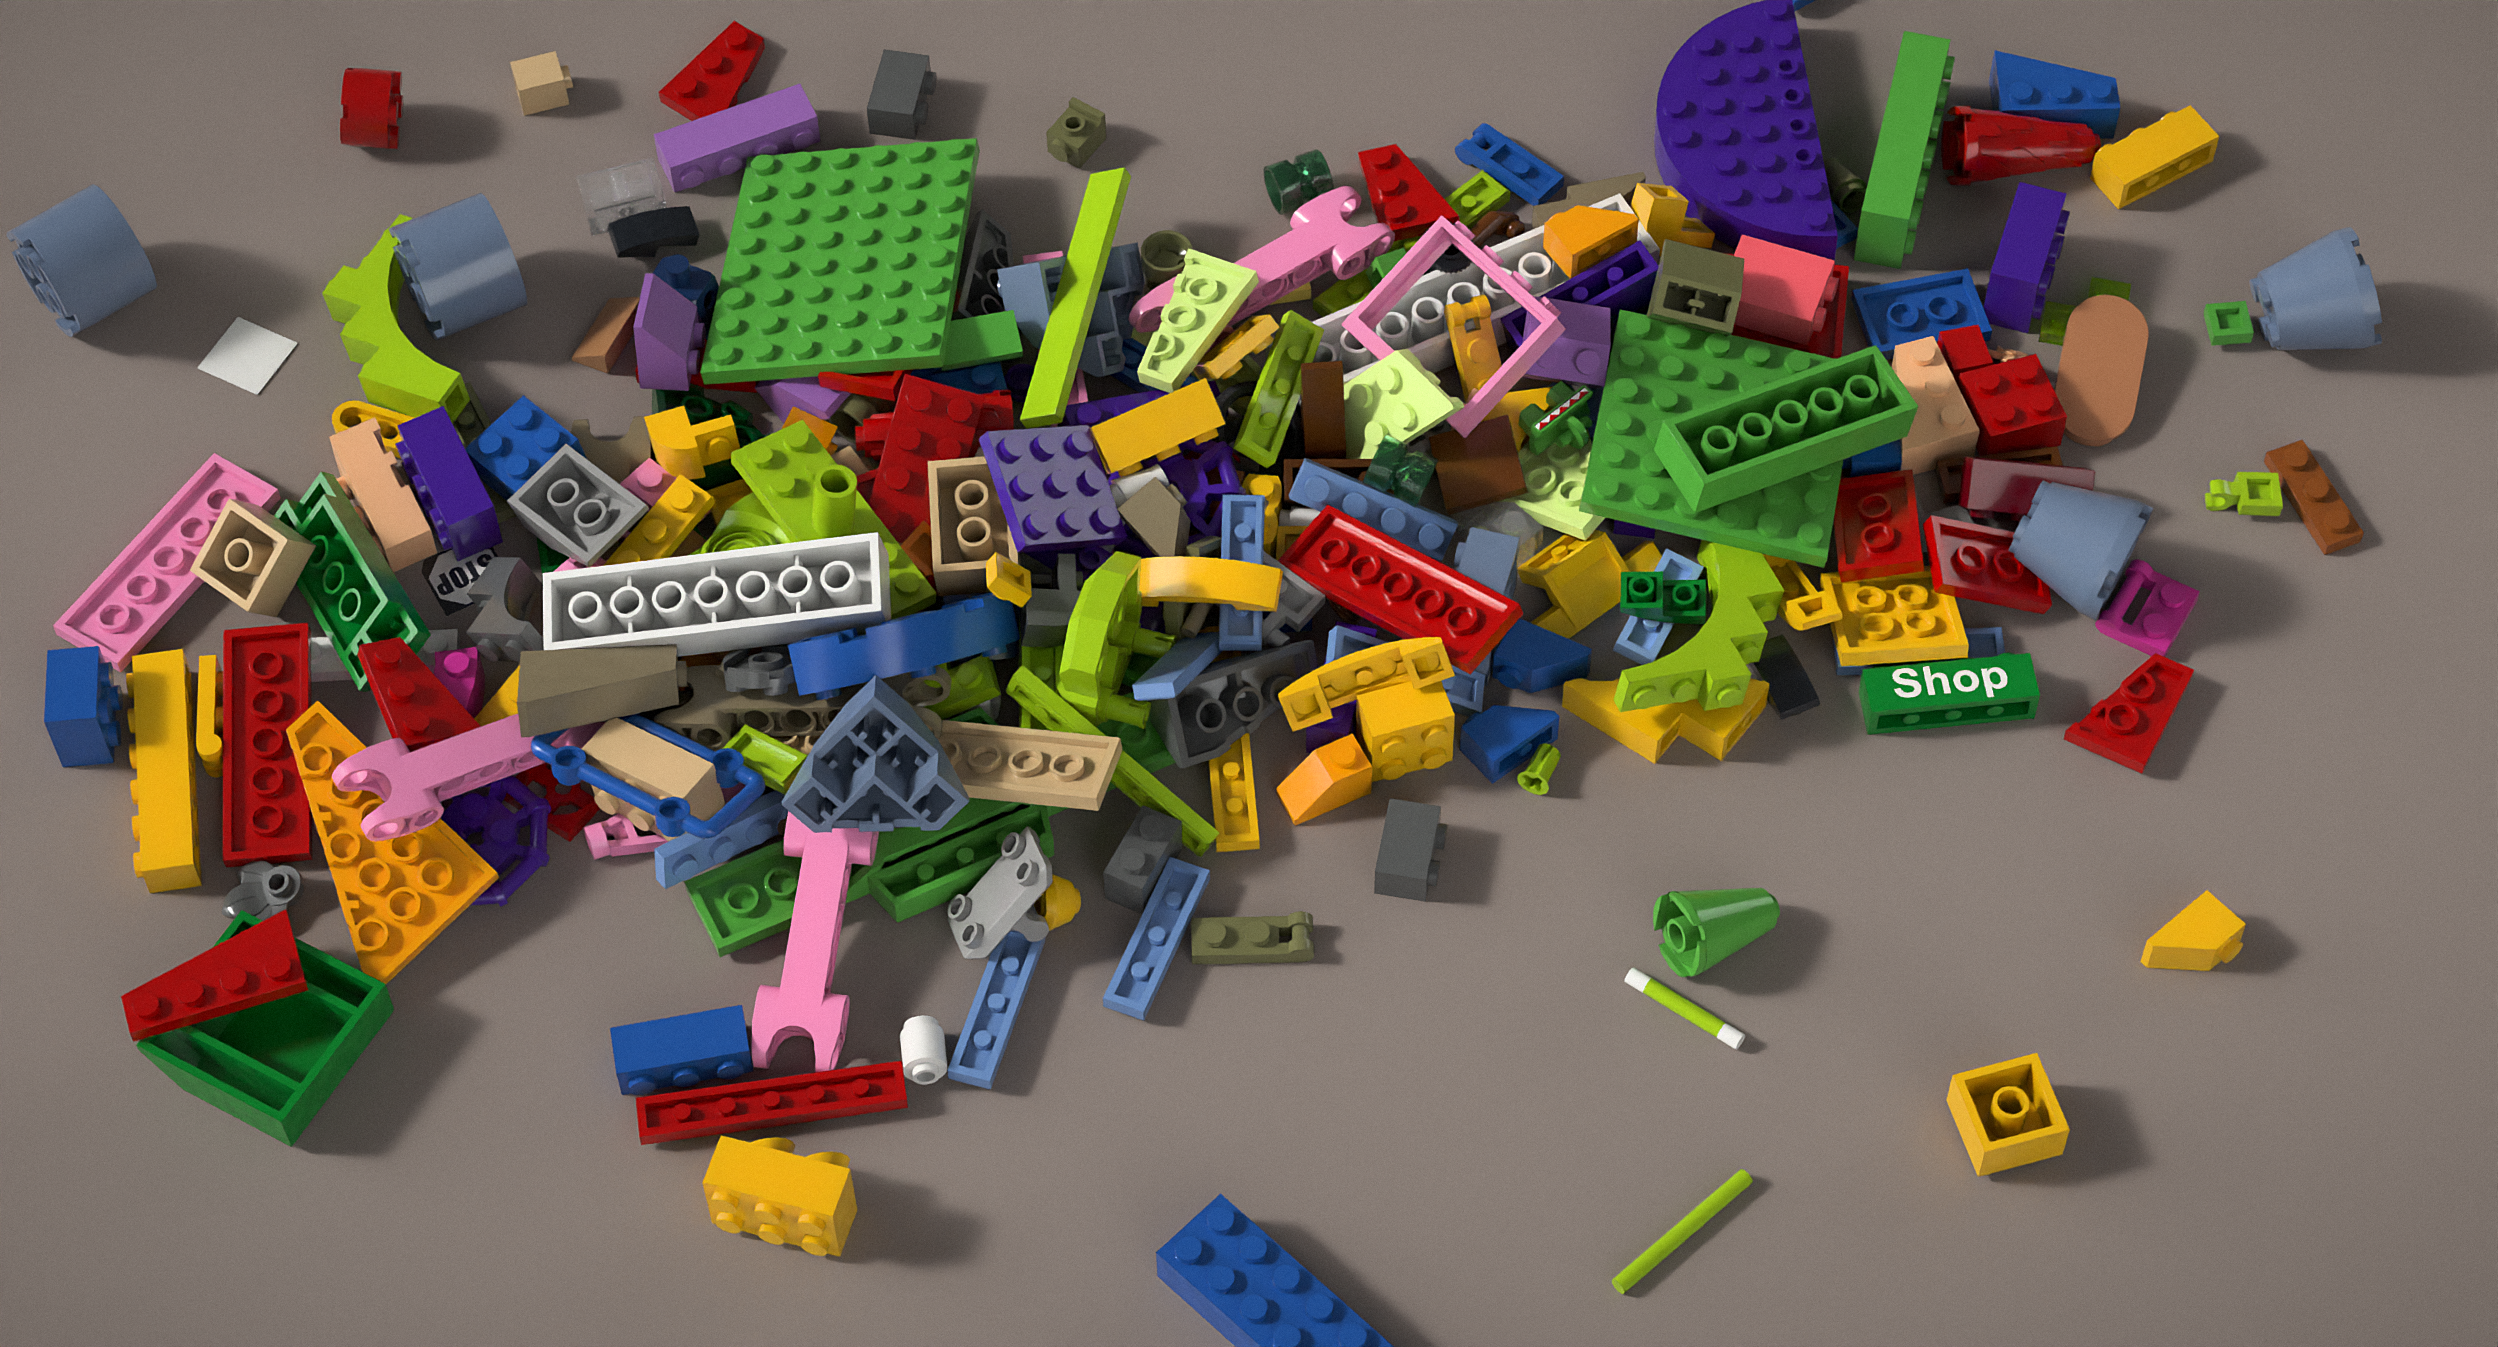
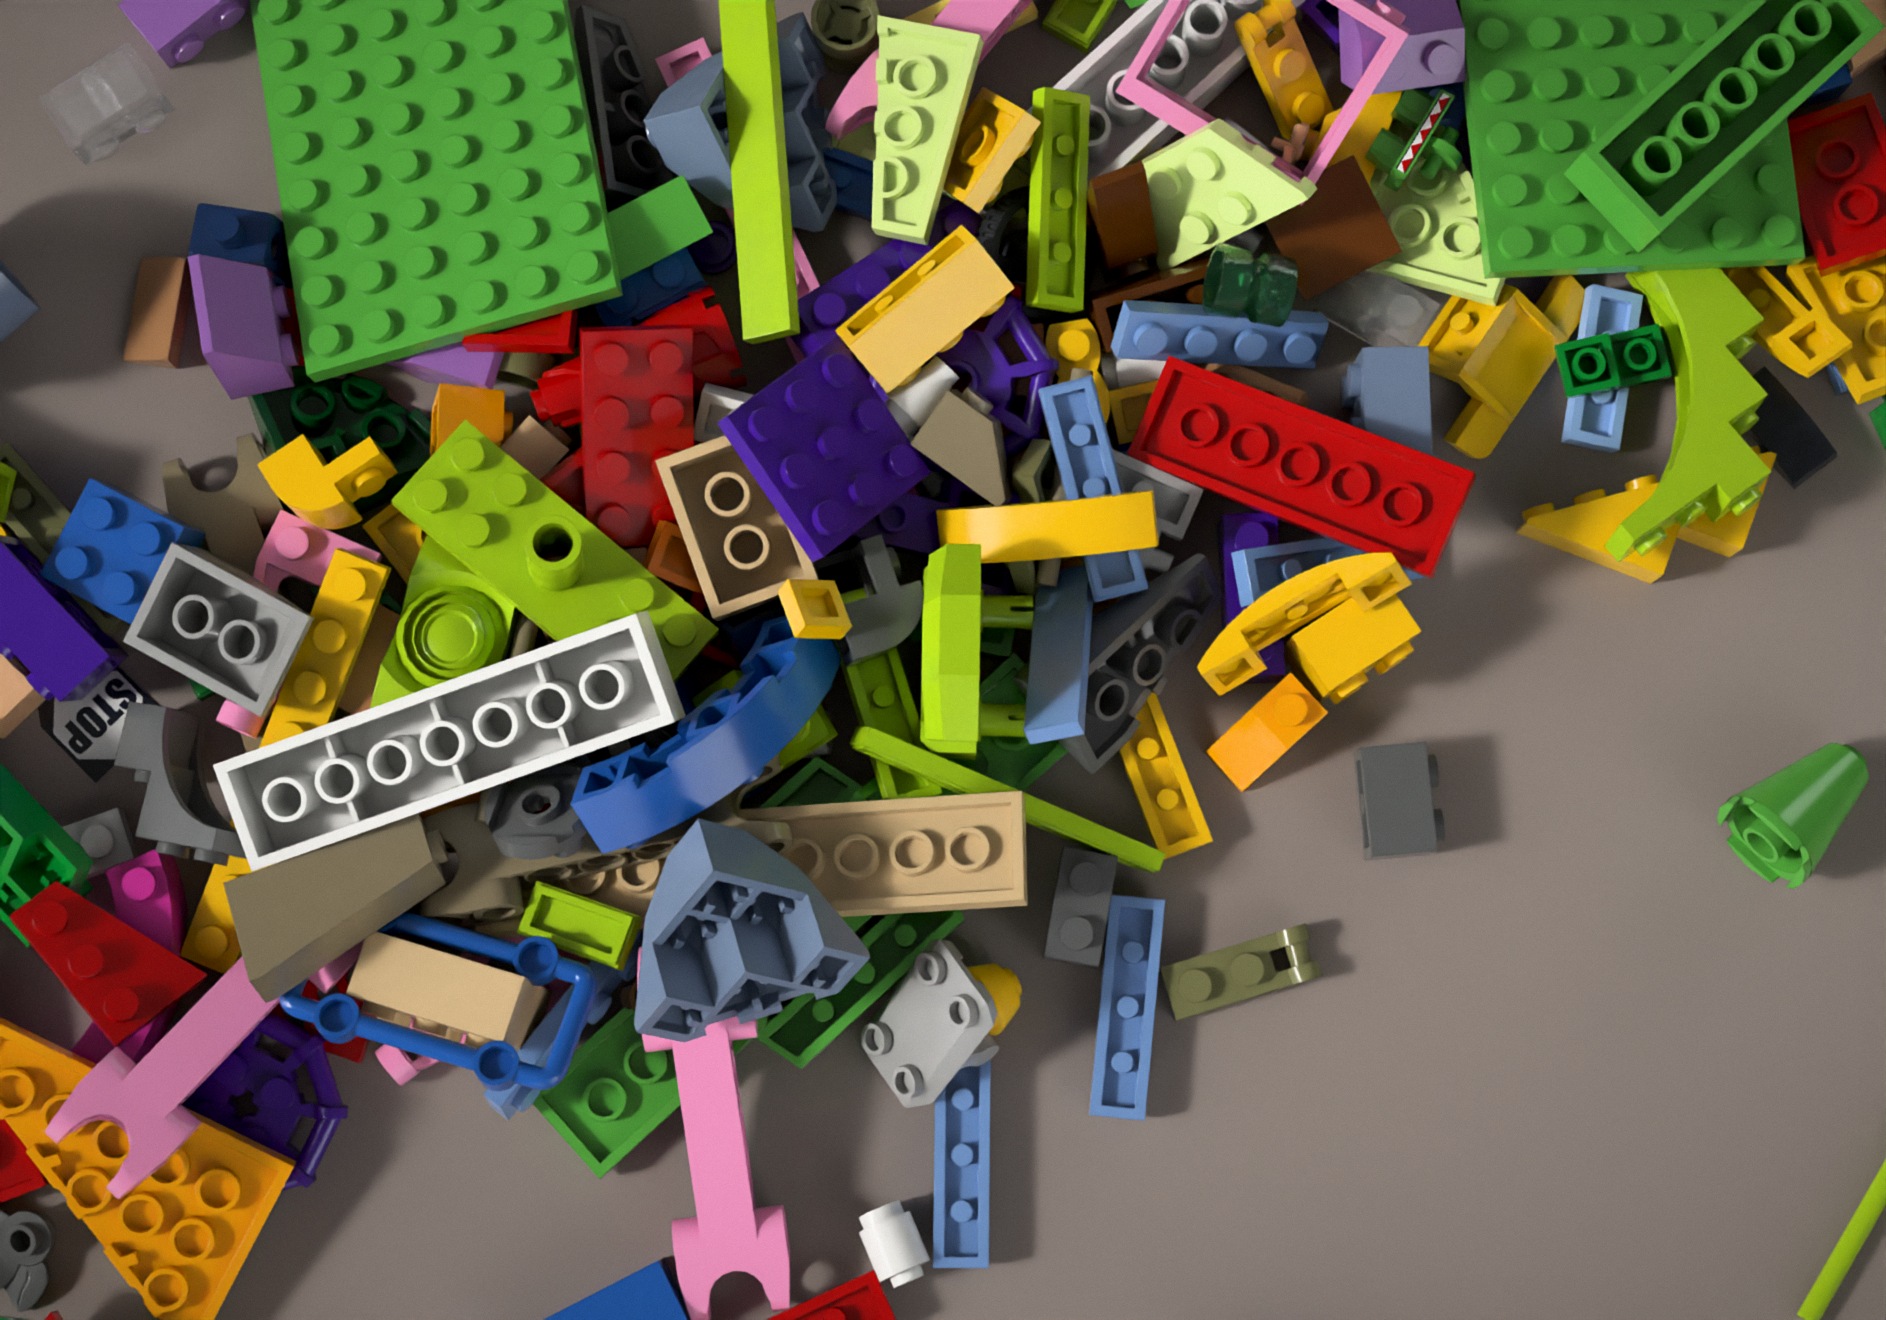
camera: 15 degrees left, 25 degrees up
(646, 231) = (164, 144): black slope -> none
(1506, 737) = (1467, 610): blue slope -> none
(1538, 658) = (1497, 478): blue slope -> none
(1539, 769) = (1520, 637): lime piece -> none
(1684, 1008) = (1782, 921): lime bar -> none

